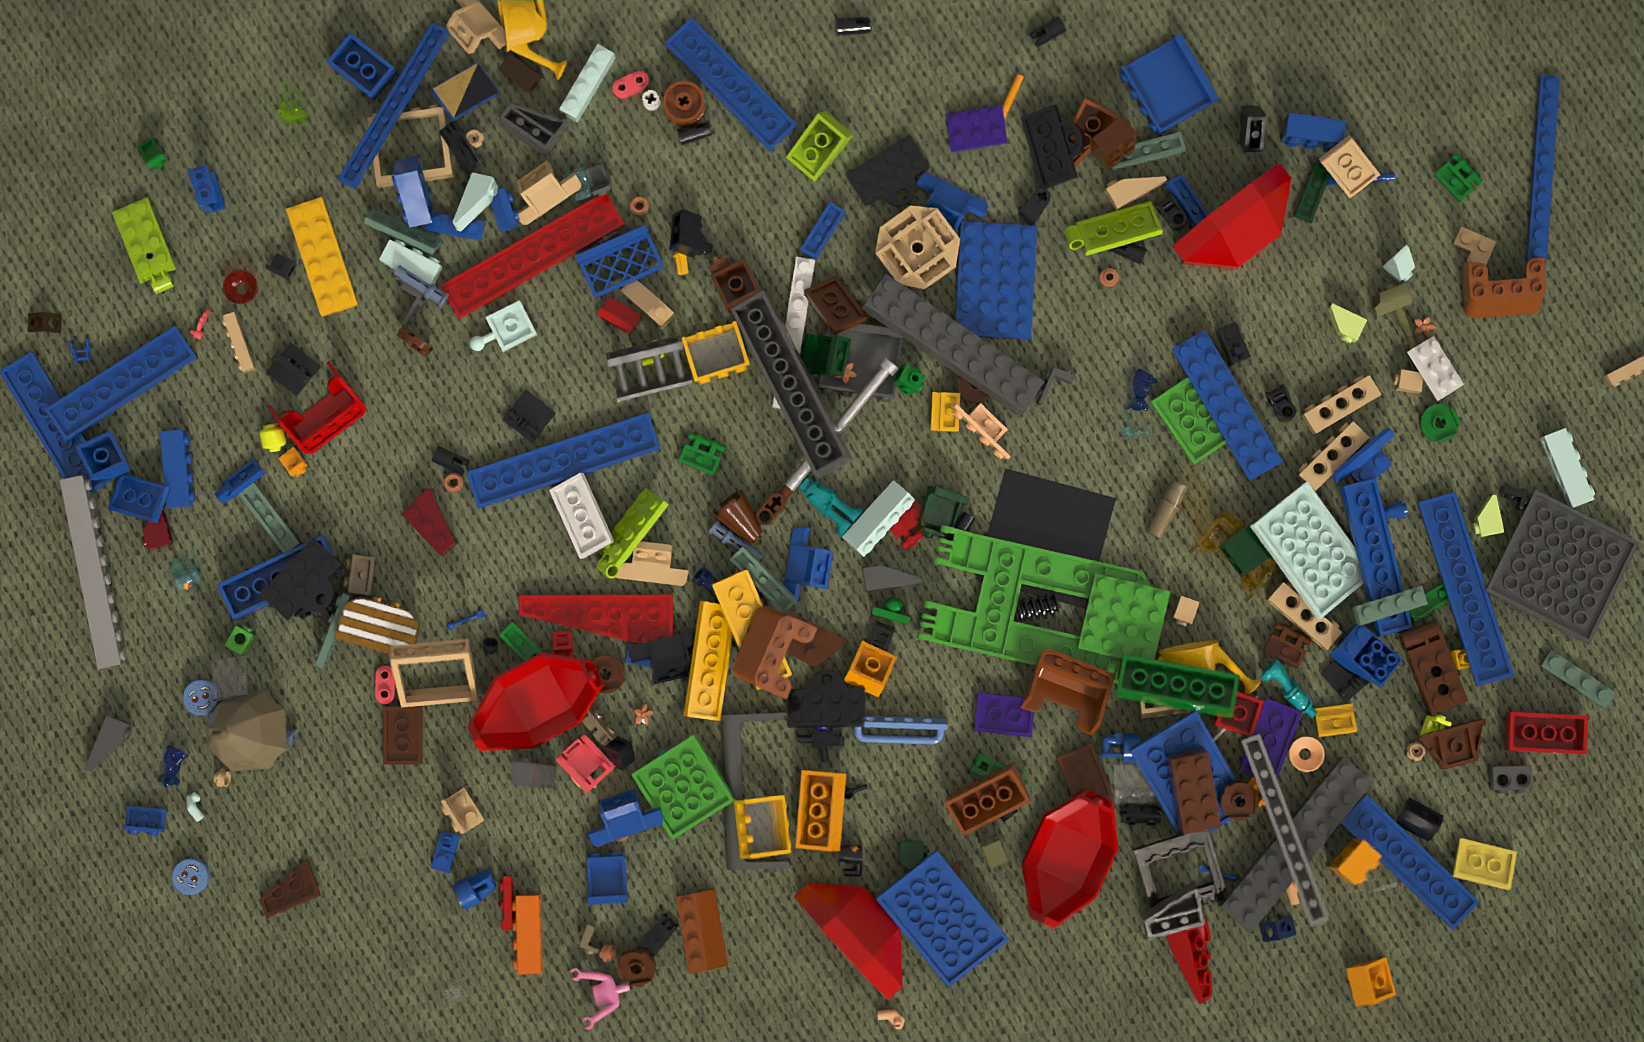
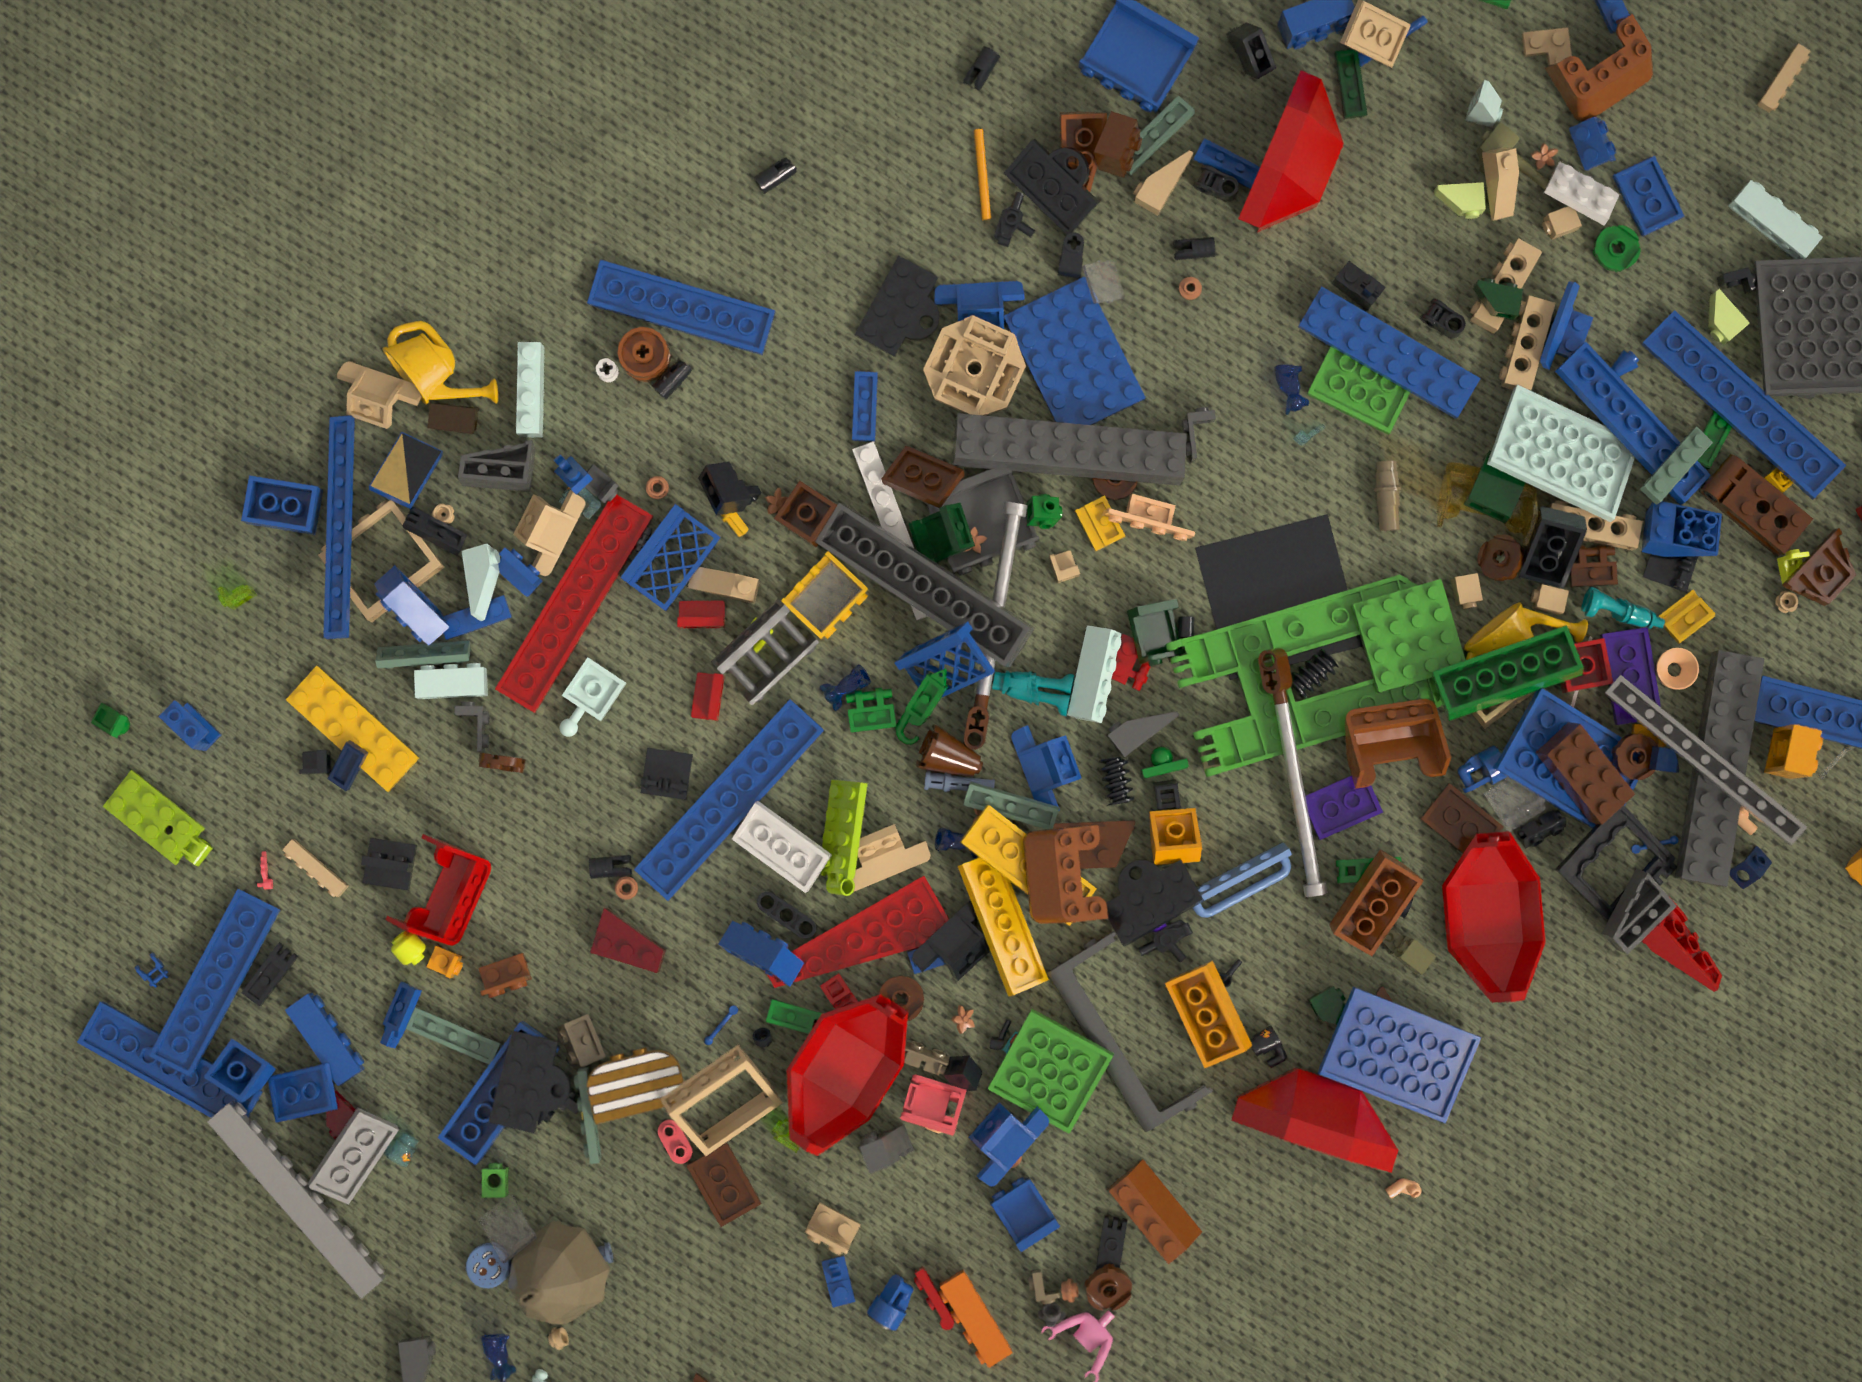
camera: 30 degrees left, 0 degrees up
(40, 322) = (91, 965): dark brown bracket -> none
(149, 563) = (353, 1156): none -> light grey plate
(162, 400) = (269, 975): none -> black hinge
(231, 282) = (272, 808): clear red piece -> none
(303, 281) = (347, 765): none -> dark blue tile
(332, 495) = (509, 972): none -> dark orange bracket
(429, 290) = (487, 701): sand blue pin -> none
(462, 723) = (782, 1137): none -> clear neon green bracket
(524, 583) = (761, 951): none -> blue wedge
(553, 558) = (775, 913): none -> black beam
(583, 161) = (572, 473): none -> blue plate
(585, 962) = (1051, 1309): none -> dark grey plate
(590, 377) = (707, 696): none -> red panel
(631, 85) = (577, 366): coral plate -> none
(656, 745) = (997, 1042): none -> black hand
(704, 425) = (848, 684): none -> clear blue animal
(741, 469) = (922, 704): none -> green plate
(762, 827) = (1157, 1066): window -> none
(786, 436) = (941, 644): none -> blue fence
(819, 145) = (810, 319): lime slope -> none
(851, 604) = (1116, 780): none -> black piece
(901, 428) = (1064, 566): none -> tan panel
(976, 128) = (965, 210): dark purple plate -> none
(1006, 155) = (1011, 221): none -> black piece
(1007, 597) = (1269, 680): none -> flat silver piece
(1048, 237) = (1103, 282): none -> clear piece
(1119, 228) = (1172, 229): lime hinge -> none
(1227, 609) = (1509, 566): none -> reddish brown plate
(1242, 651) = (1549, 599): none -> tan brick
(1257, 814) = (1664, 760): none -> dark blue slope
(1264, 613) = (1553, 547): none -> black brick
(1328, 411) = (1499, 299): none -> dark green slope
(1380, 327) = (1501, 181): none -> tan slope
(1420, 819) = (1832, 670): black panel -> none
(1466, 336) = (1593, 143): none -> blue bracket
(1484, 398) = (1648, 196): none -> blue tile

